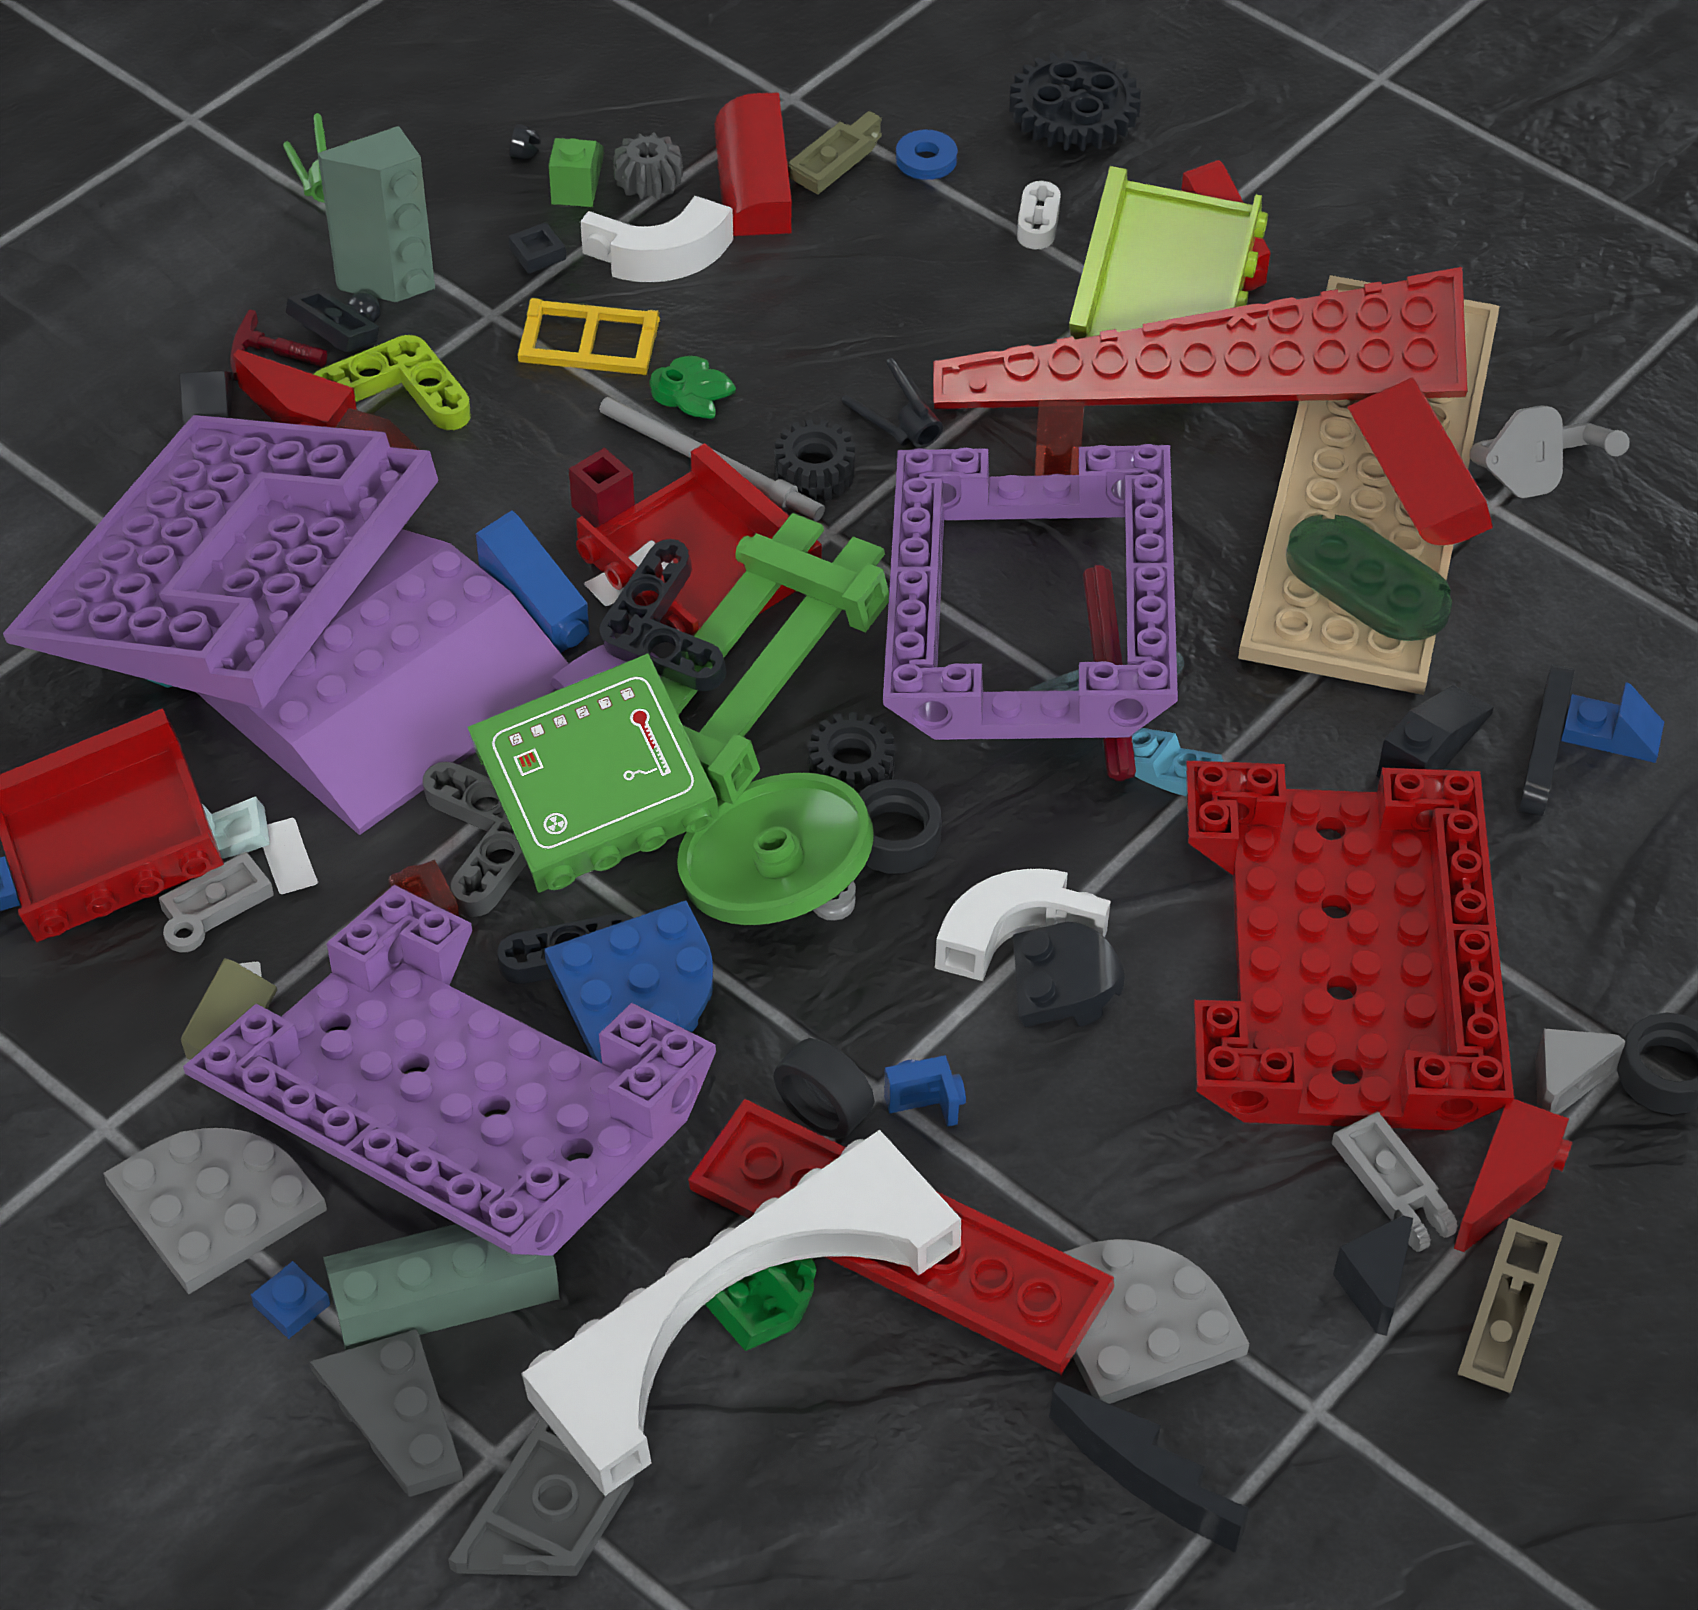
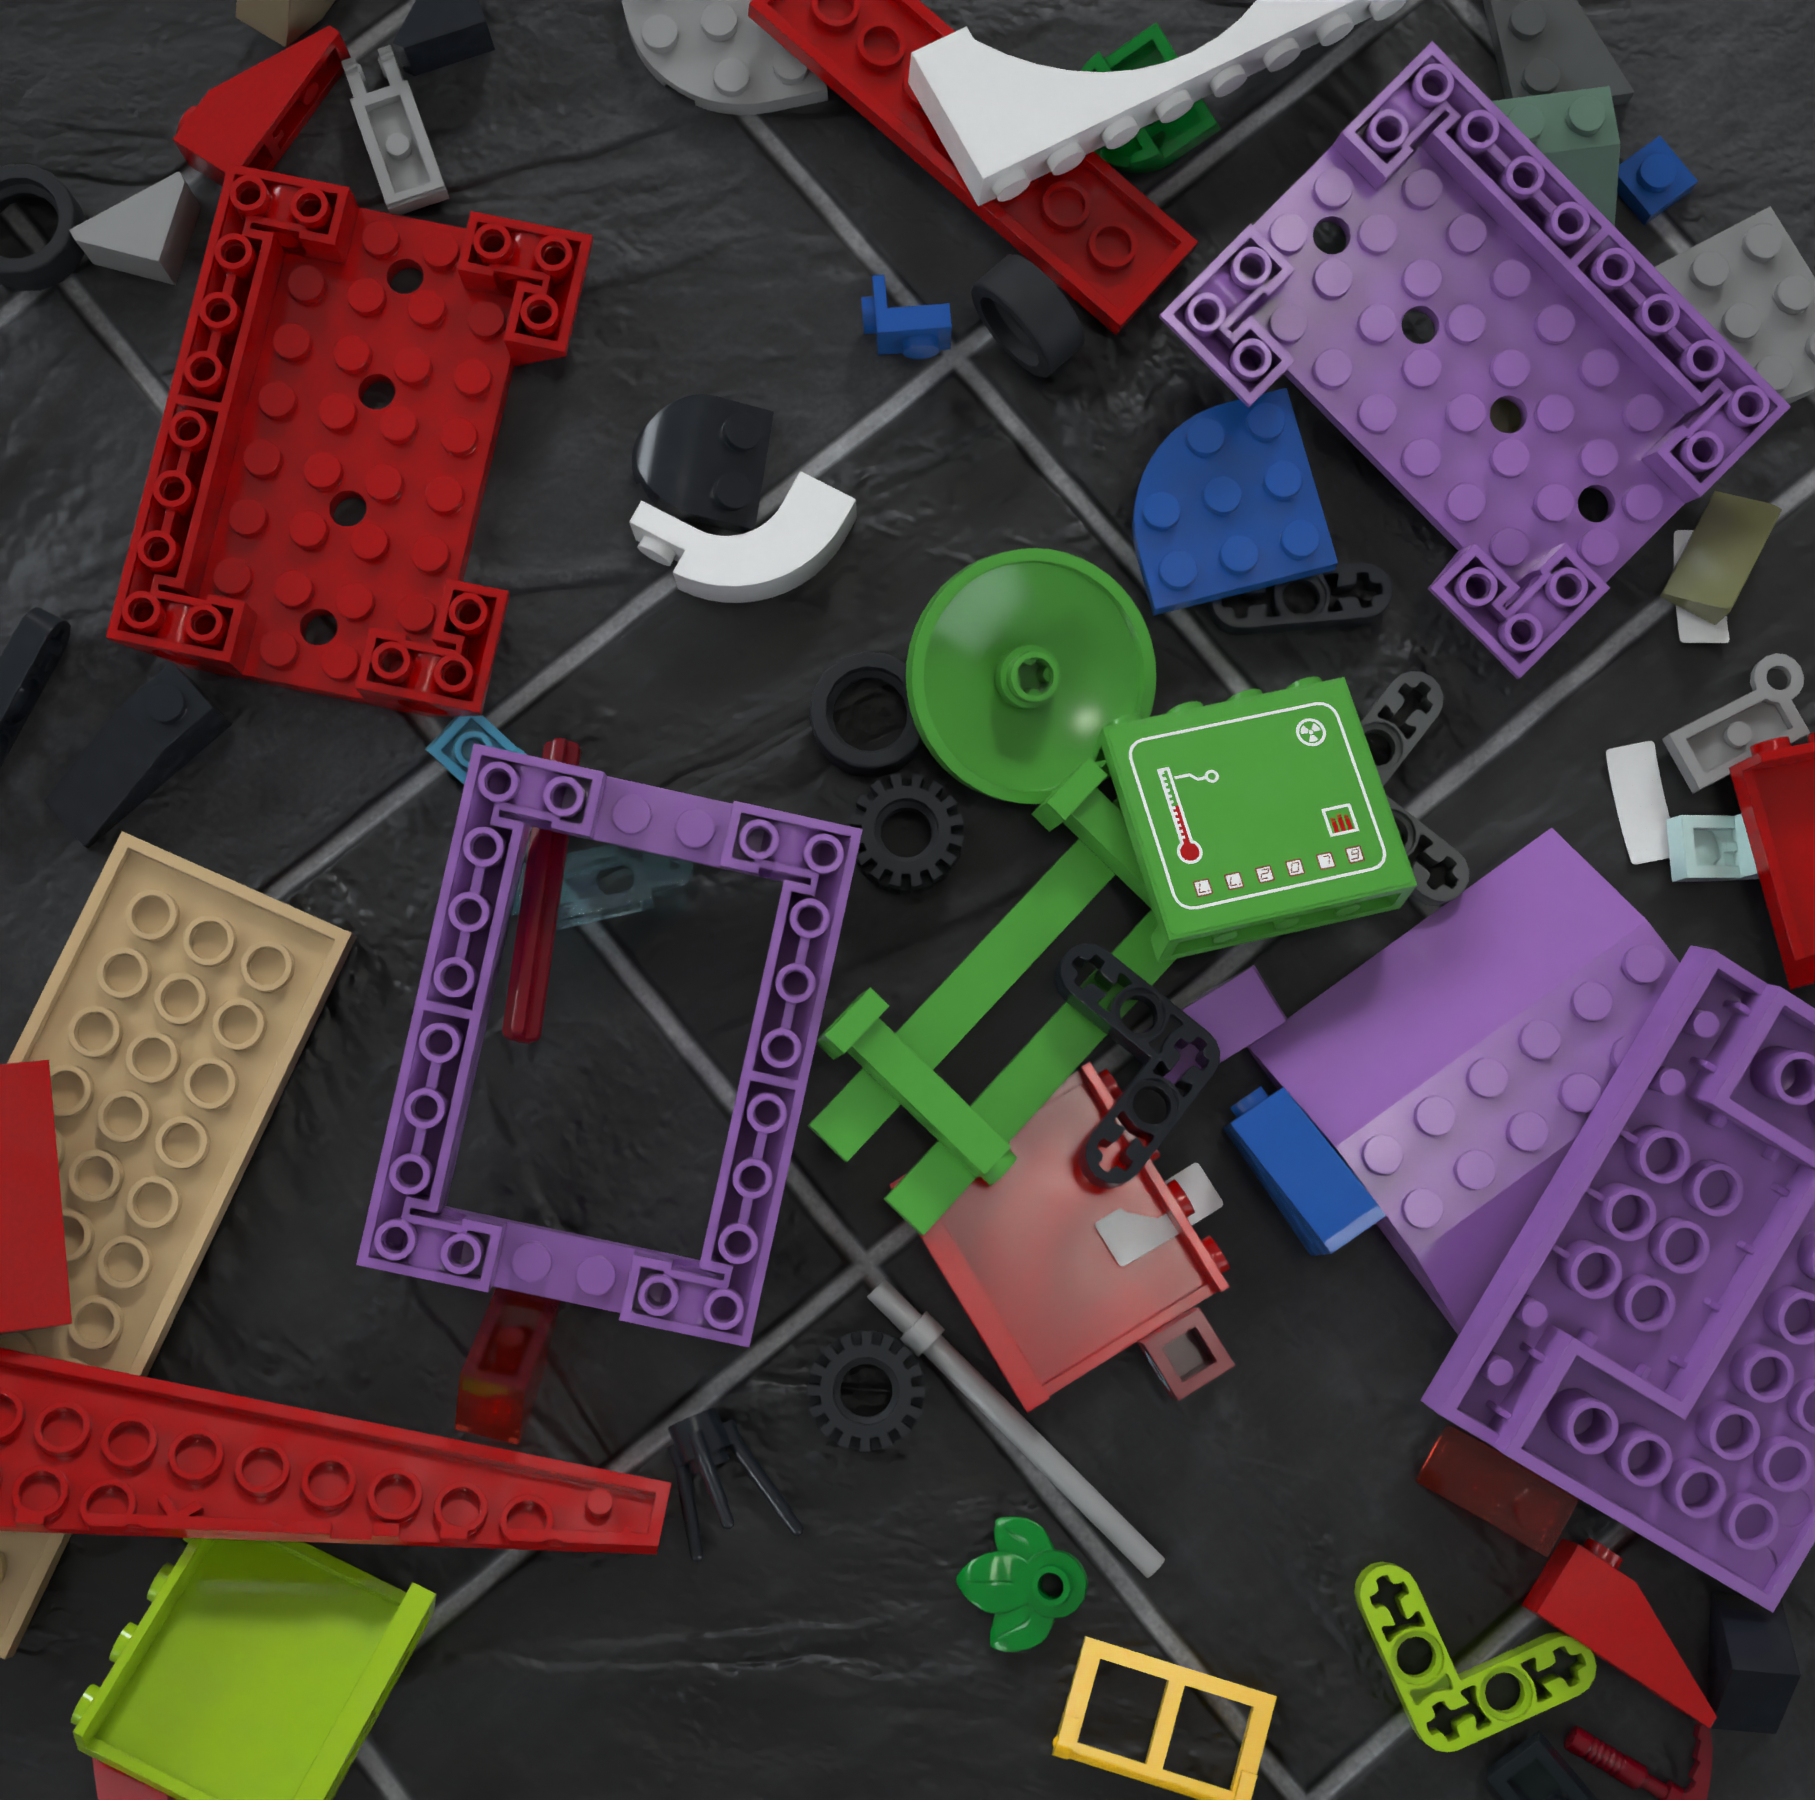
camera: 170 degrees left, 30 degrees up
(427, 883) = (1463, 682): clear red bracket -> none
(1369, 577) = (141, 1019): clear green tile -> none

